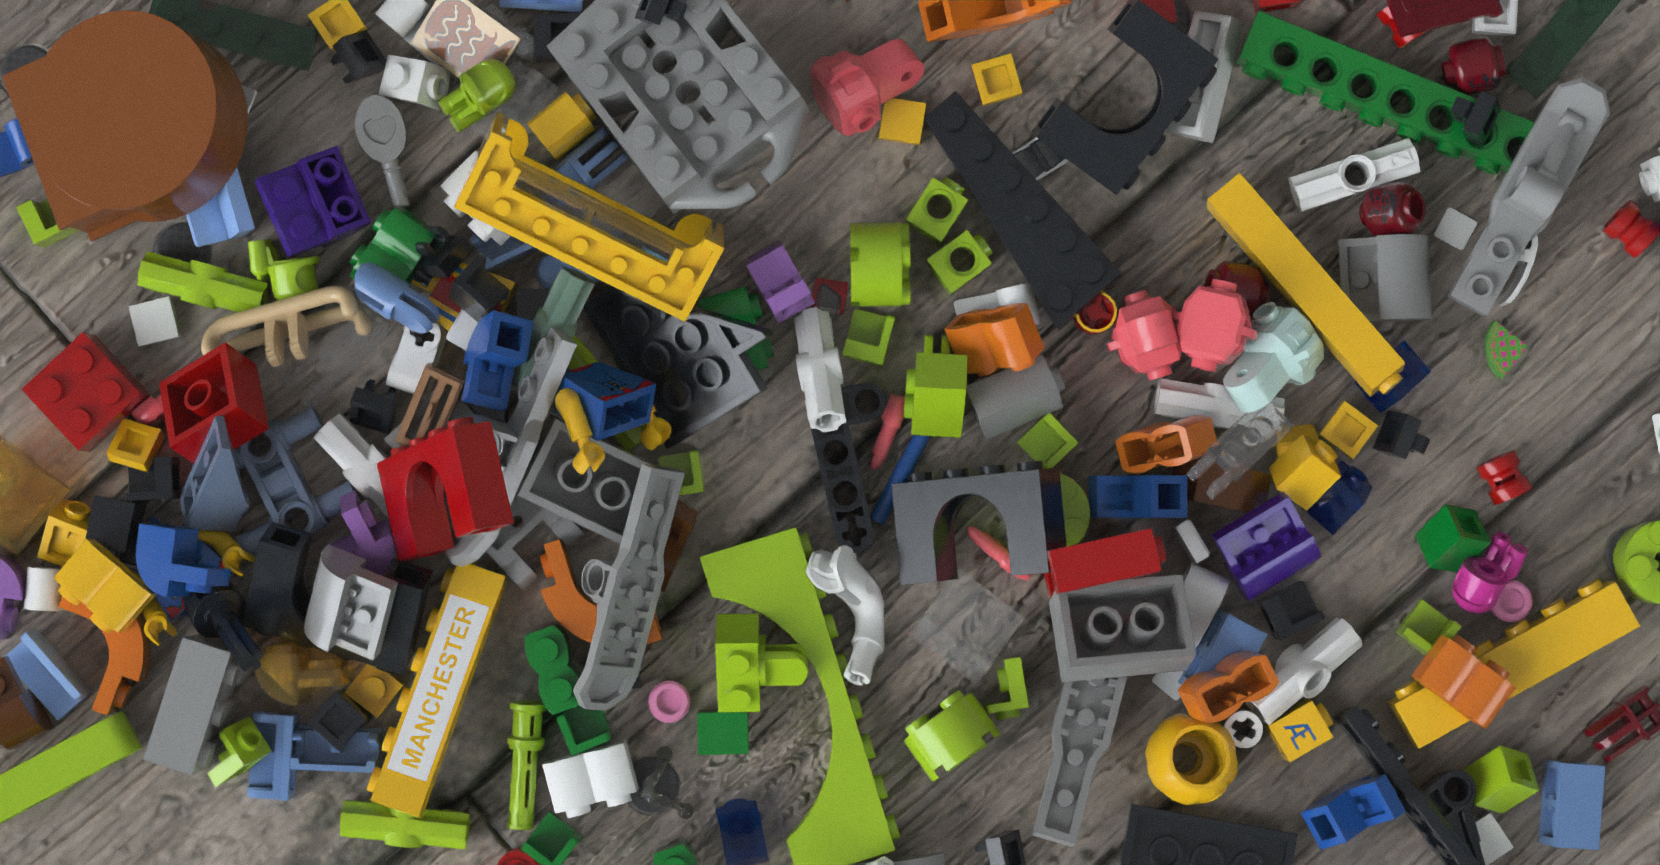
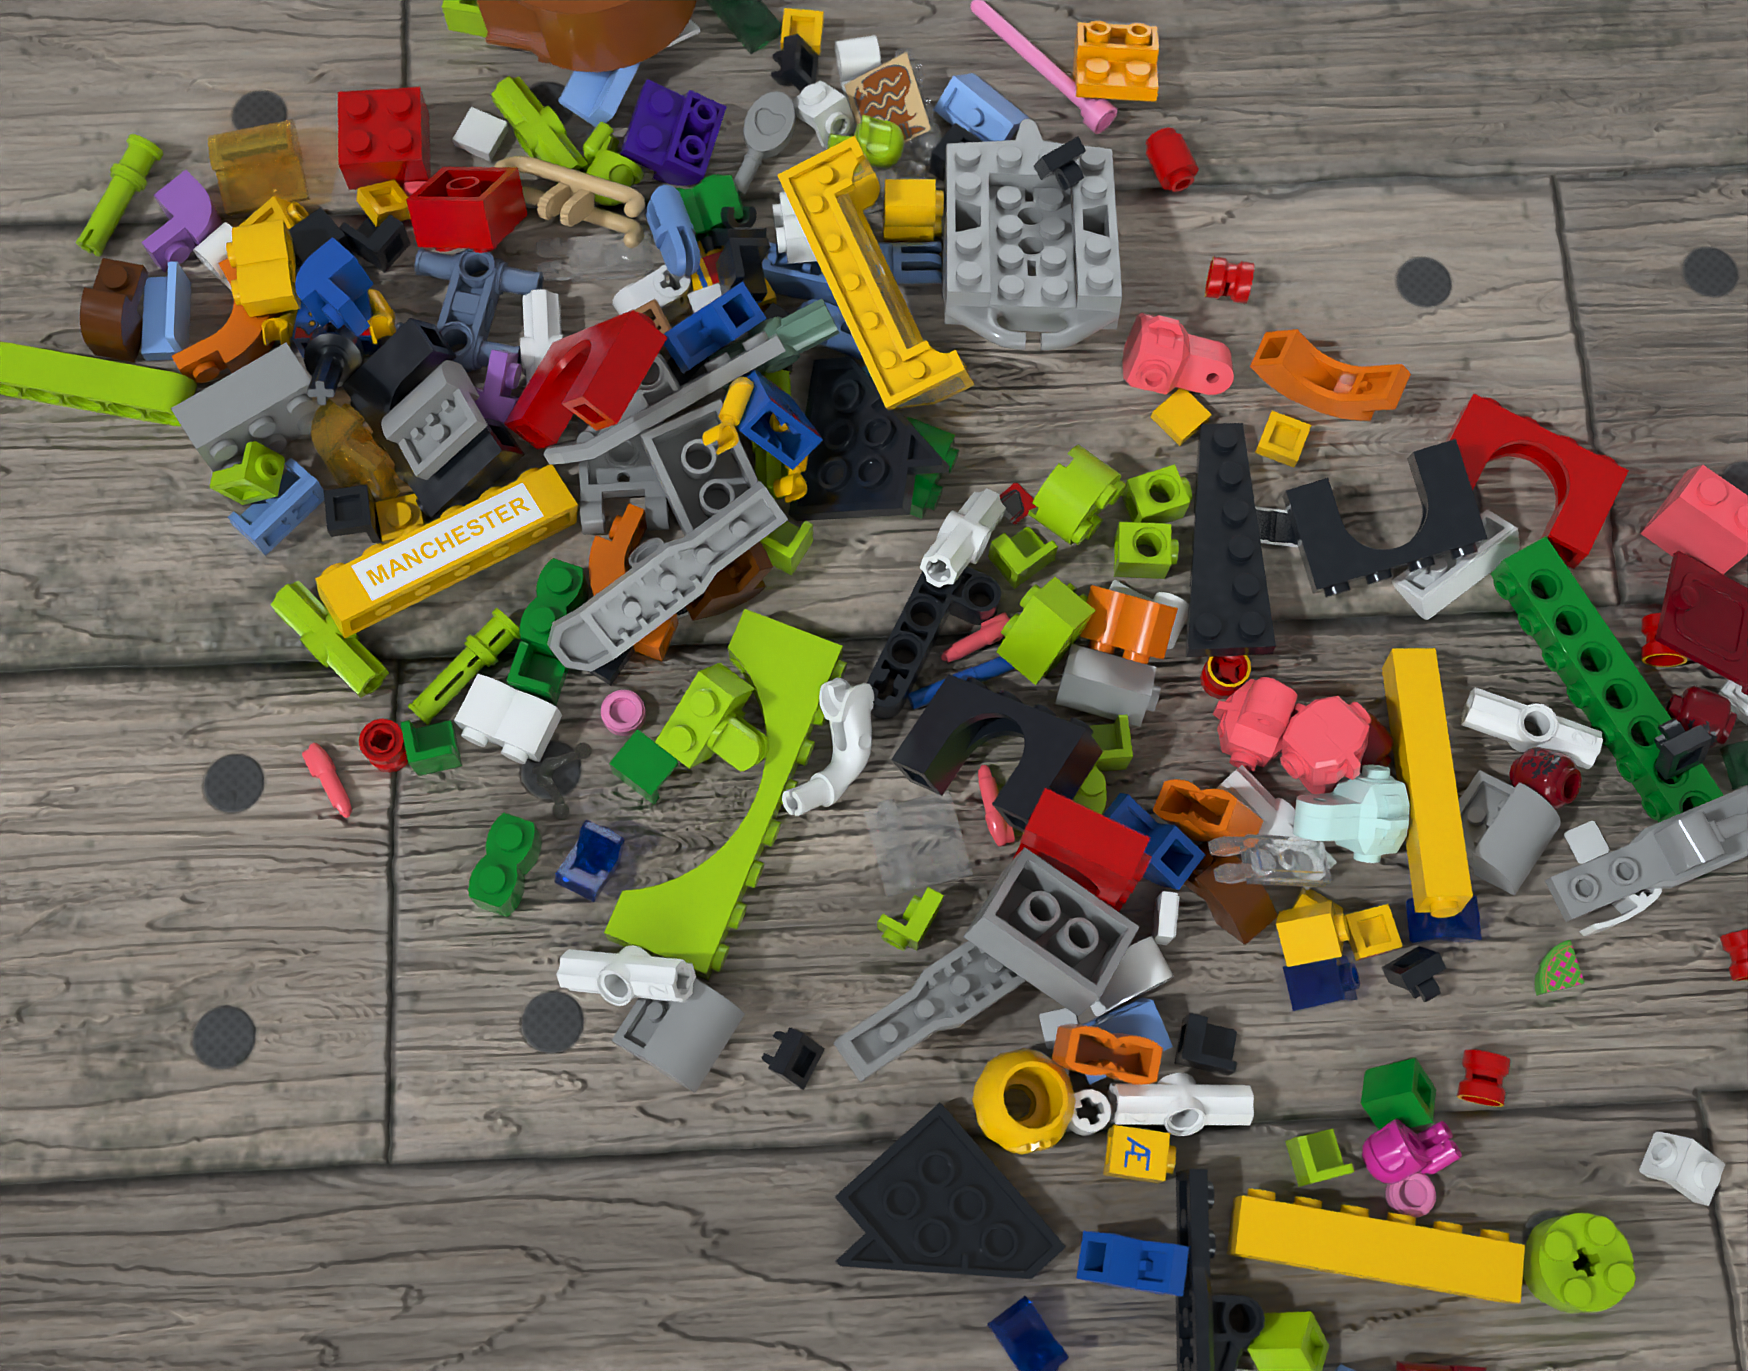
camera: 30 degrees right, 15 degrees down
(214, 489) = (420, 264): sand blue slope -> none
(317, 754) = (311, 531): medium blue hinge -> none
(373, 409) = (586, 307): black tile -> none
(779, 281) = (985, 453): medium lavender brick -> none
(950, 735) = (832, 913): lime brick -> none
(1266, 546) = (1229, 969): dark purple brick -> none
(1463, 680) = (1324, 1219): orange brick -> none

